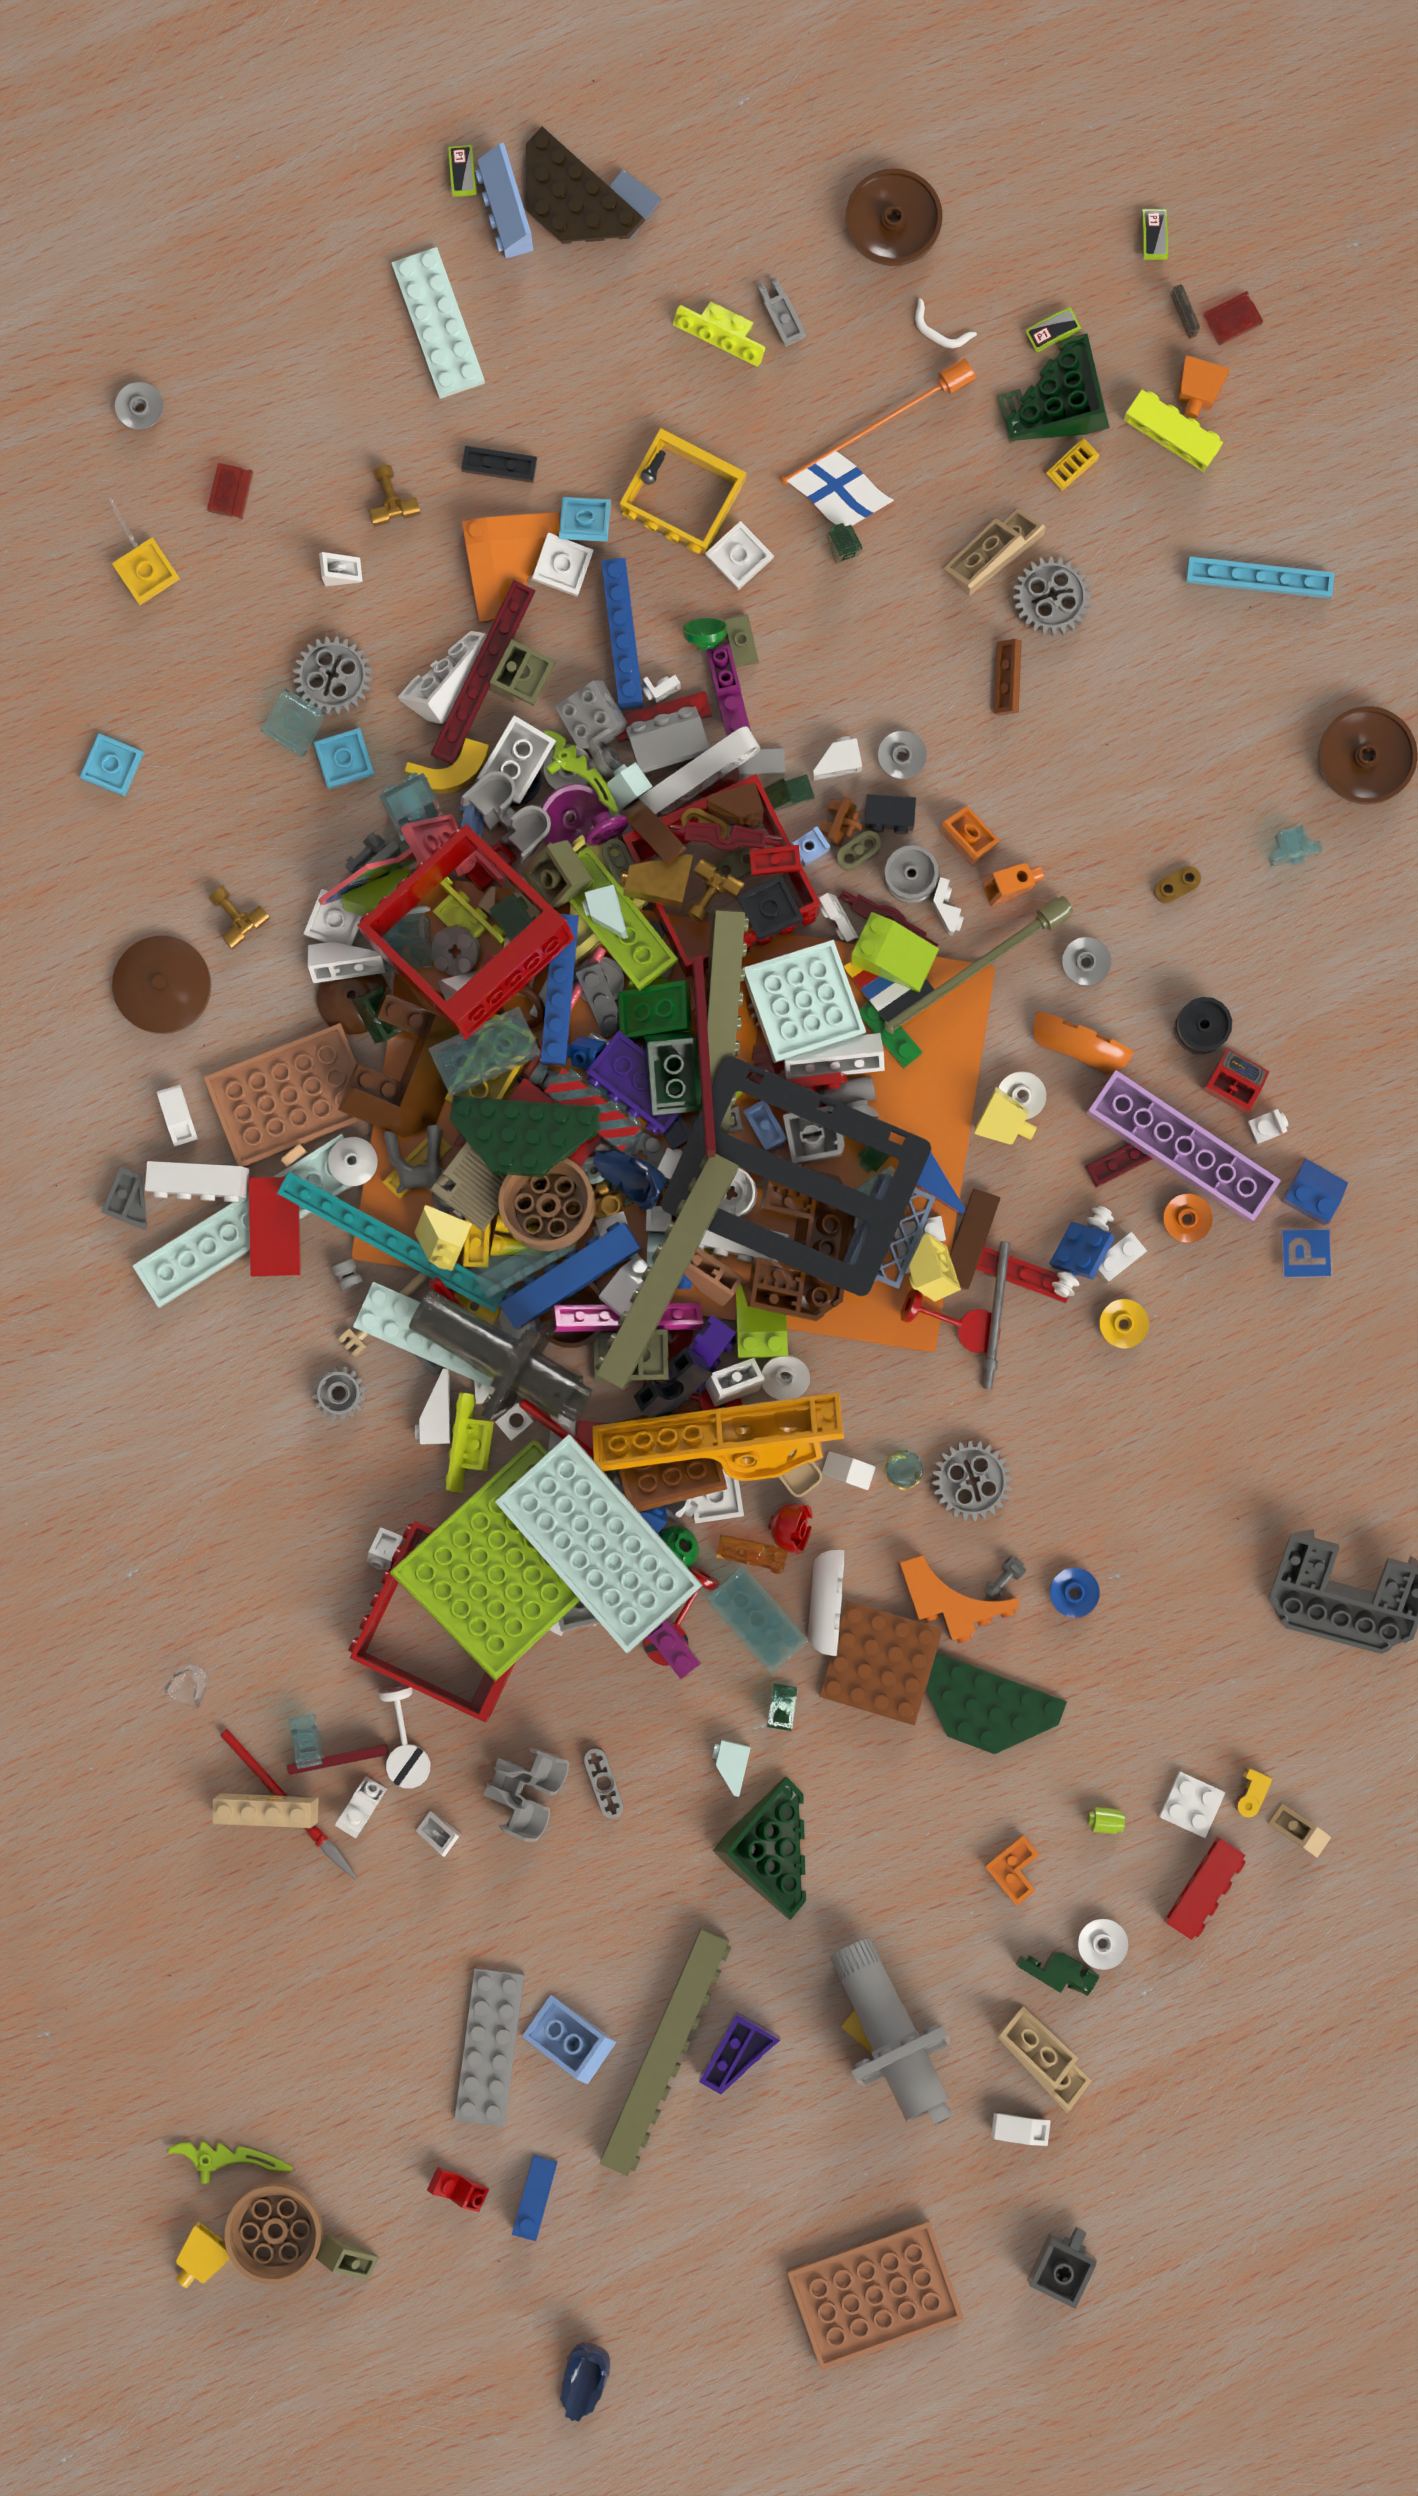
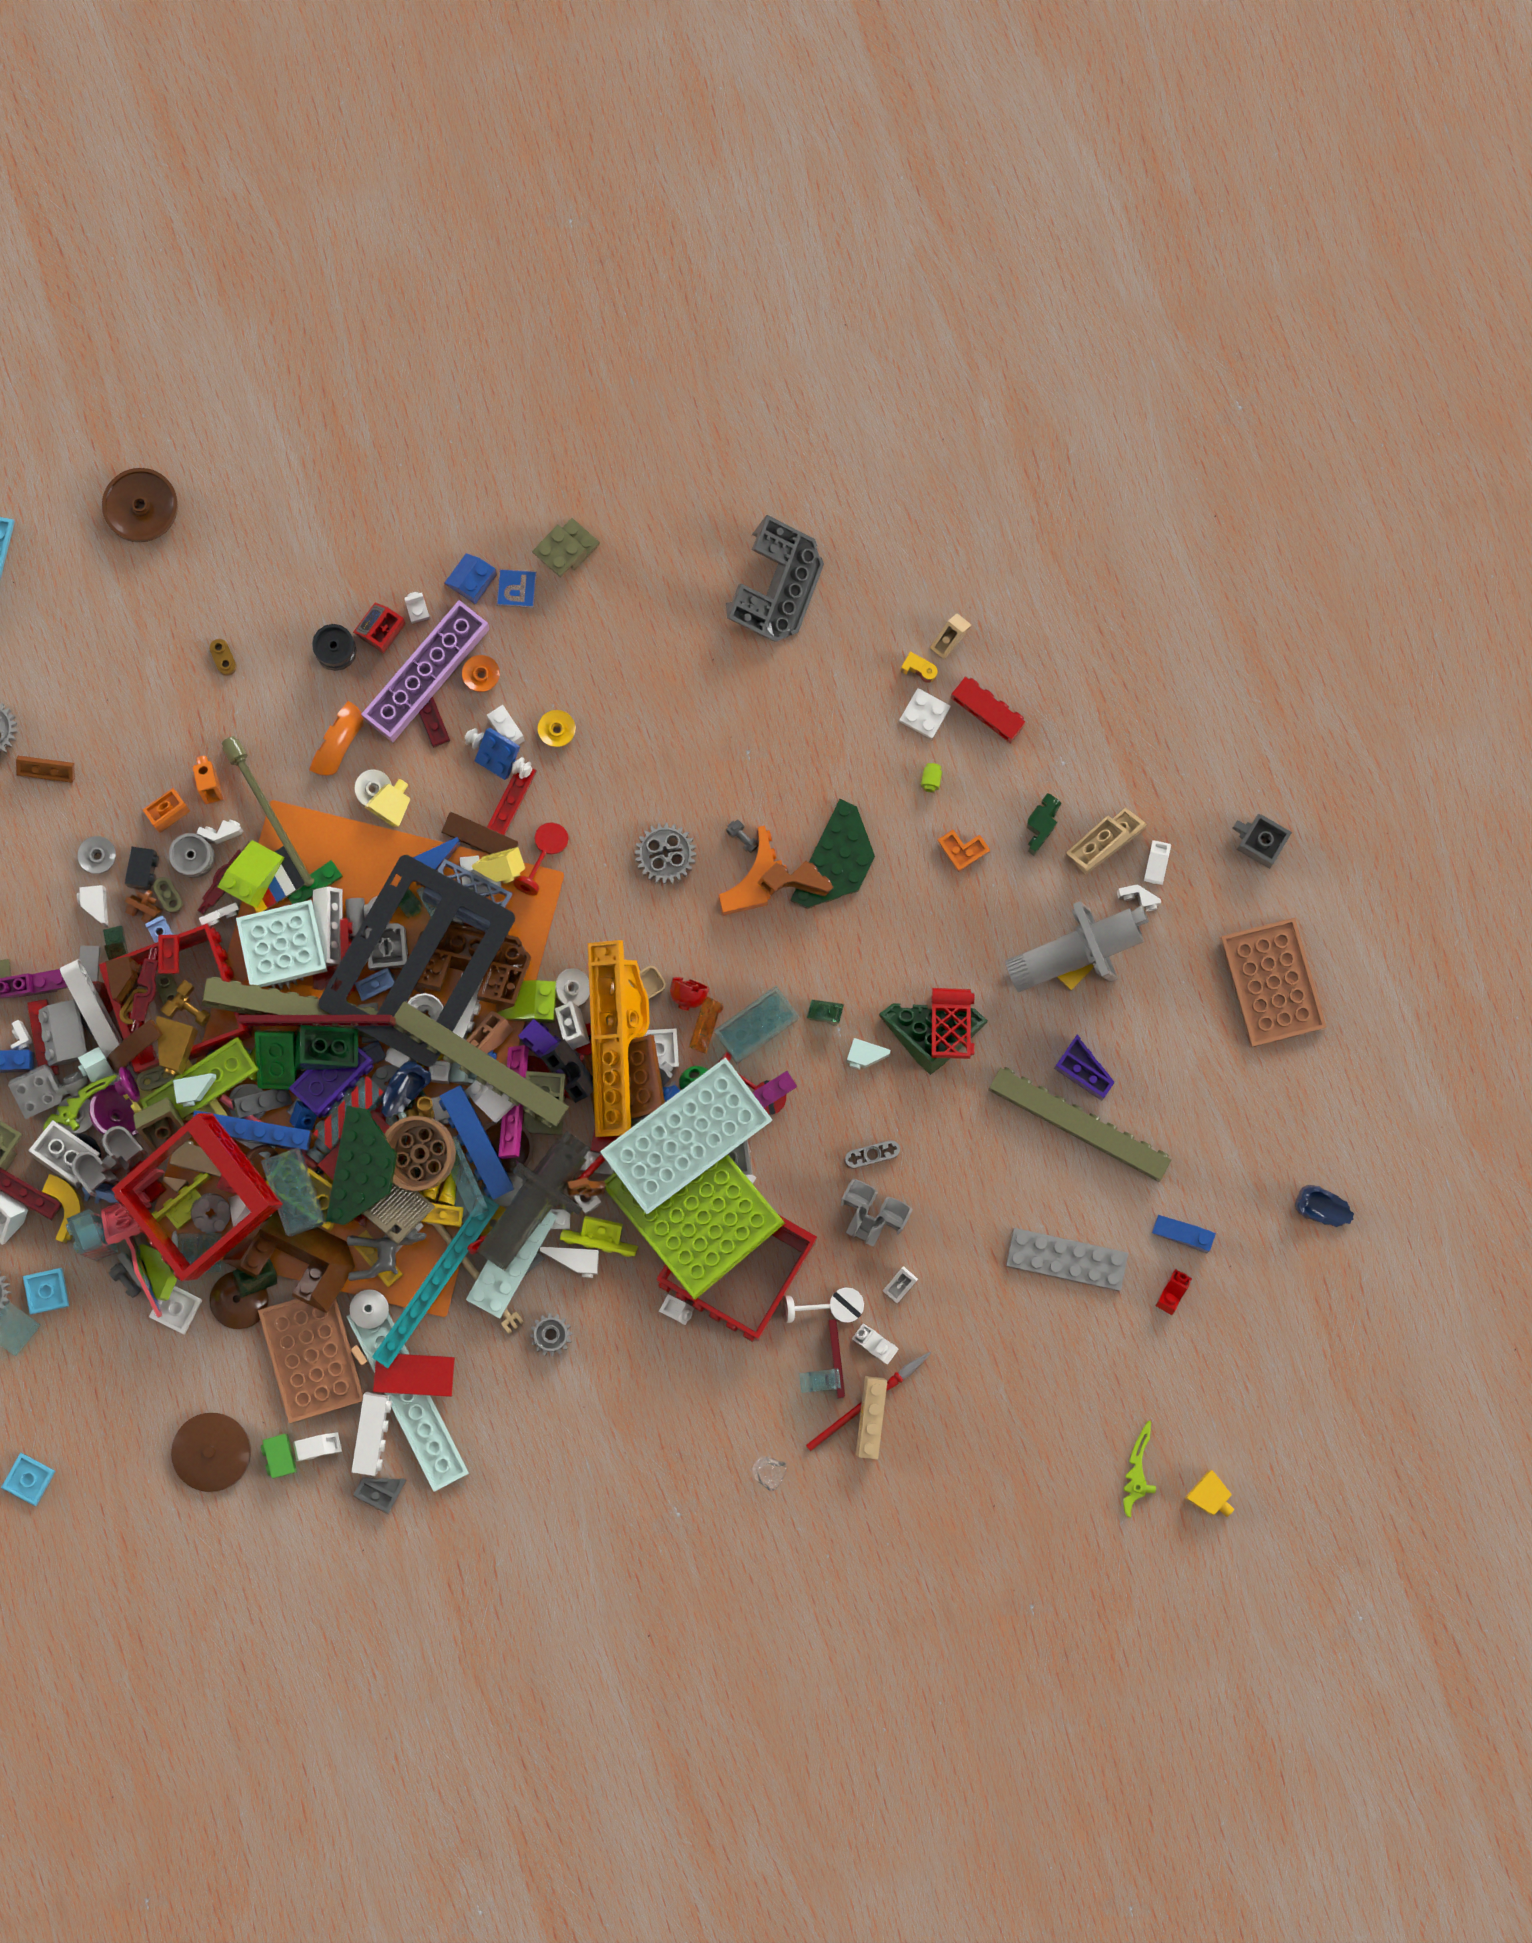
camera: 85 degrees left, 5 degrees down
(161, 1069) = (279, 1456): none -> bright green hinge
(242, 922) = (168, 1382): pearl gold bar -> none
(244, 2248) = (1223, 1435): medium nougat wheel -> none
(341, 961) = (208, 1307): white slope -> none
(345, 1269) = (454, 1323): light grey wheel -> none
(346, 2258) = (1219, 1382): olive slope -> none
(441, 1237) = (436, 1239): light yellow slope -> none
(511, 915) = (191, 1162): clear green brick -> none
(523, 1420) = (586, 1187): none -> dark orange tile
(569, 2039) = (1065, 1197): light blue slope -> none
(770, 908) = (205, 961): black plate -> none
(811, 1866) = (952, 1000): none -> red piece
(826, 1601) = (747, 971): white brick -> none
(848, 1470) = (648, 946): white slope -> none
(881, 1663) = (798, 934): dark orange plate -> none
(903, 1469) = (652, 904): clear light blue hair -> none
(953, 1665) = (804, 878): none -> dark orange arch
(970, 2116) = (1145, 898): none -> white slope
(990, 1363) = (576, 831): flat silver bar -> none
(1087, 1595) = (759, 775): blue dish -> none
(1089, 949) = (272, 721): light grey dish -> none
(1115, 1948) = (1025, 779): white dish -> none
(1293, 847) = (204, 567): clear light blue brick -> none
(1367, 1312) = (566, 547): none -> olive bracket

